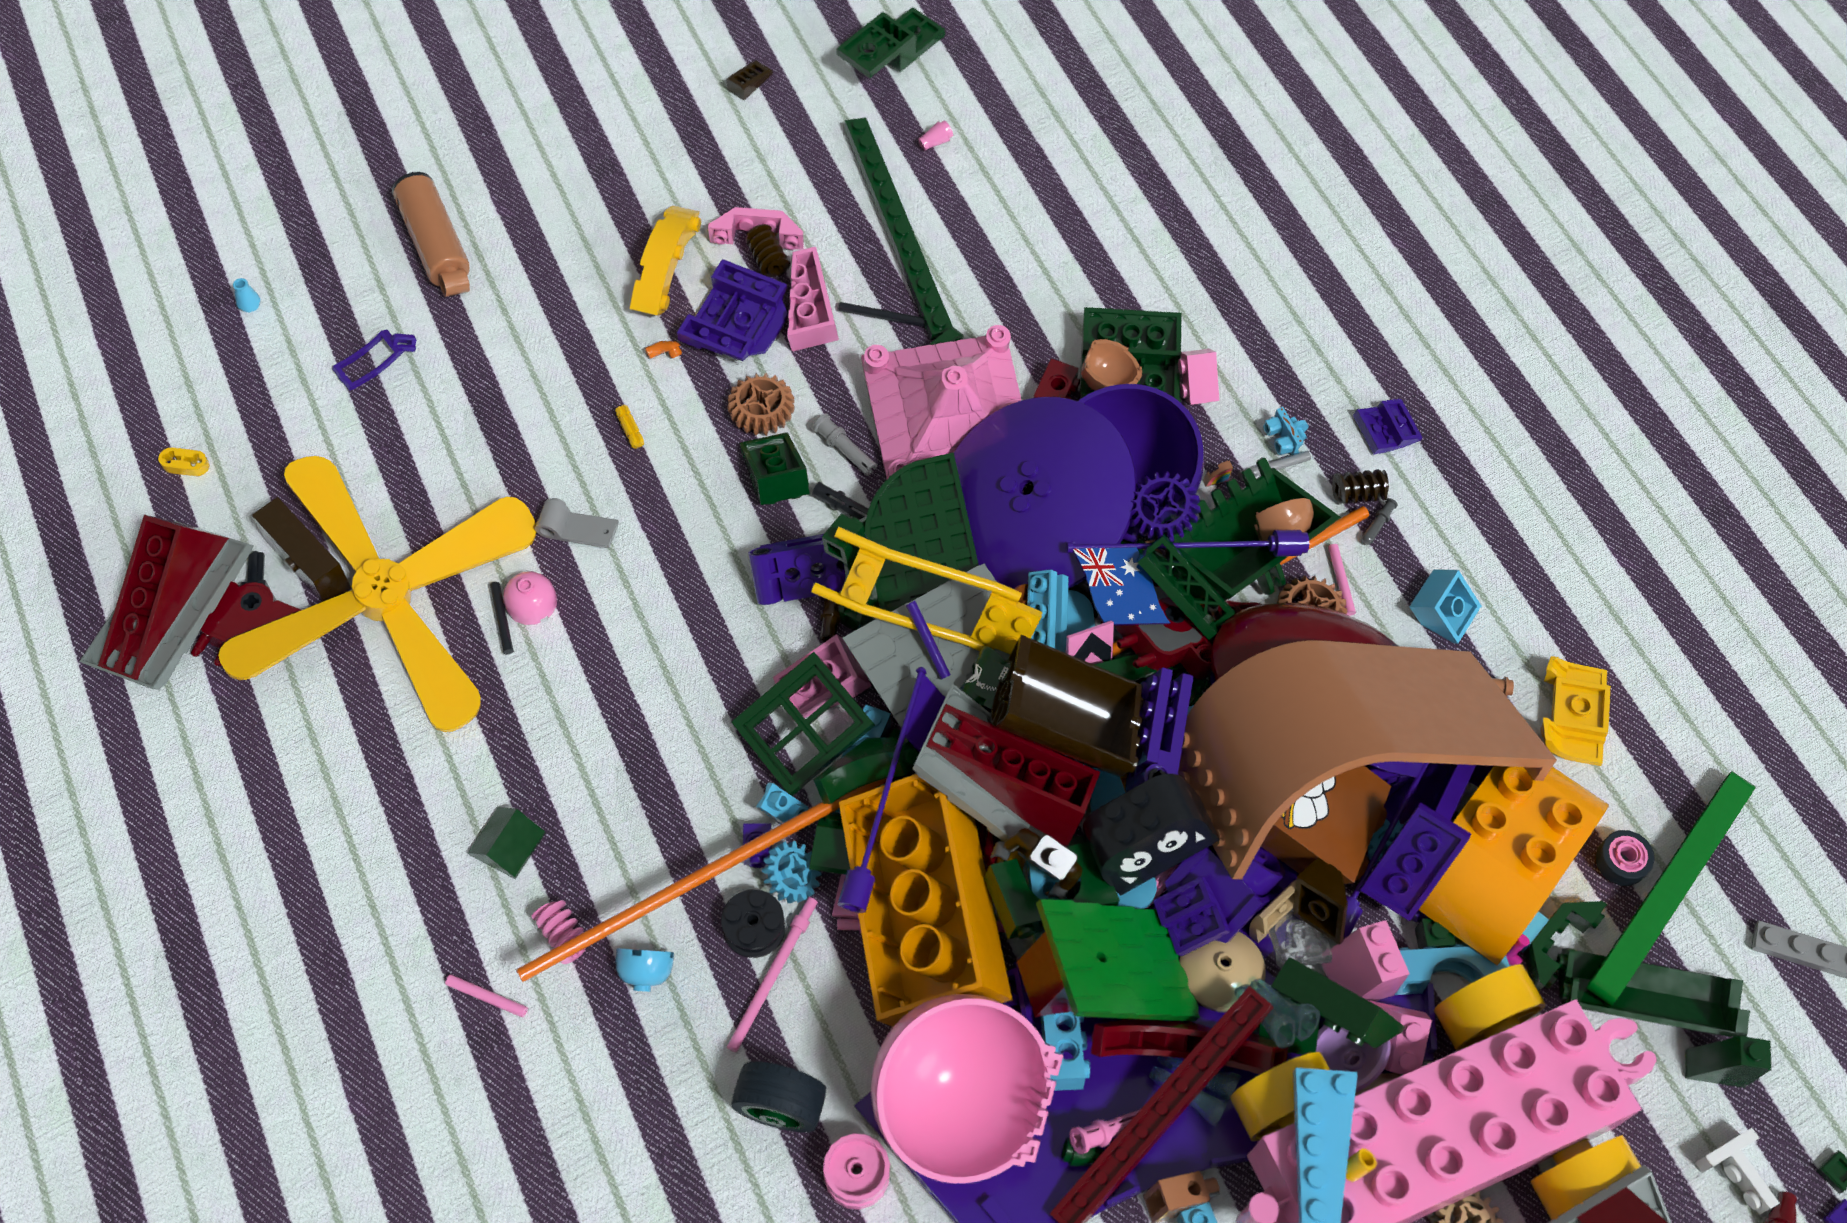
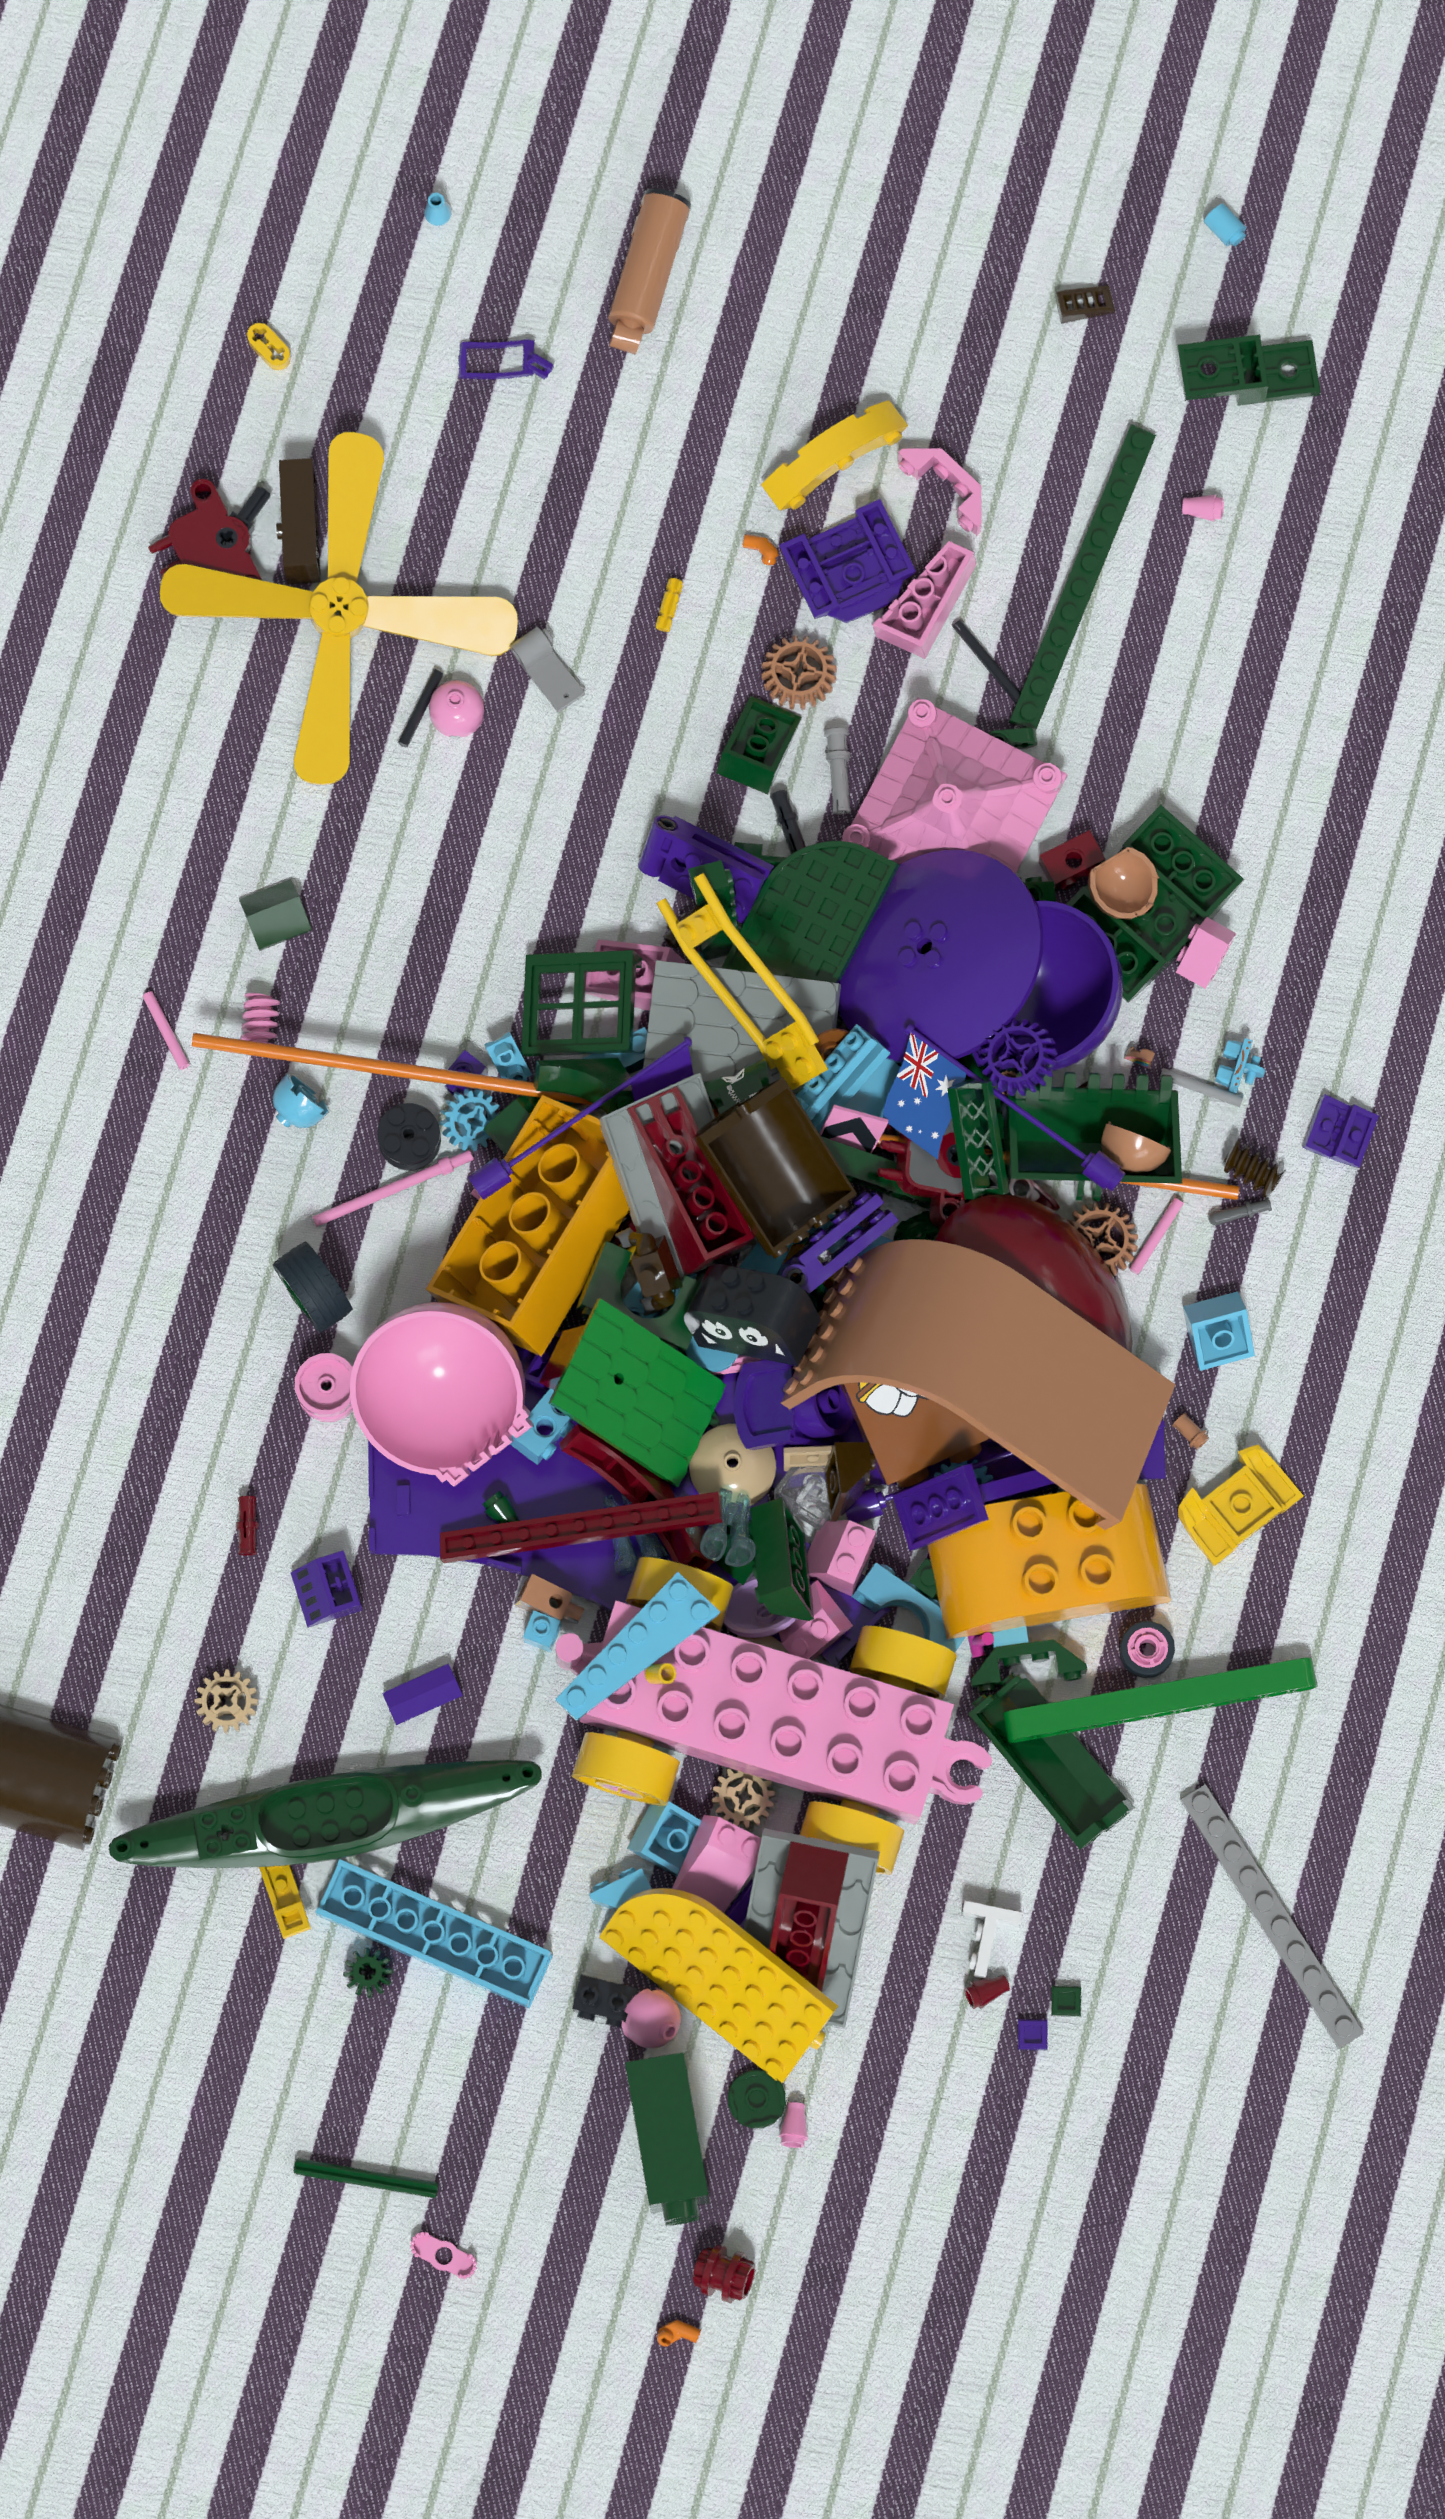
camera: 45 degrees right, 15 degrees up
(164, 600) = (160, 485): dark red piece -> none
(767, 251) = (932, 516): dark brown piece -> none
(928, 640) = (722, 1017): dark purple bar -> none
(1099, 1132) = (522, 1506): bright pink pin -> none
(1191, 916) = (737, 1406): dark purple slope -> none
(1729, 1061) = (1055, 1855): dark green slope -> none

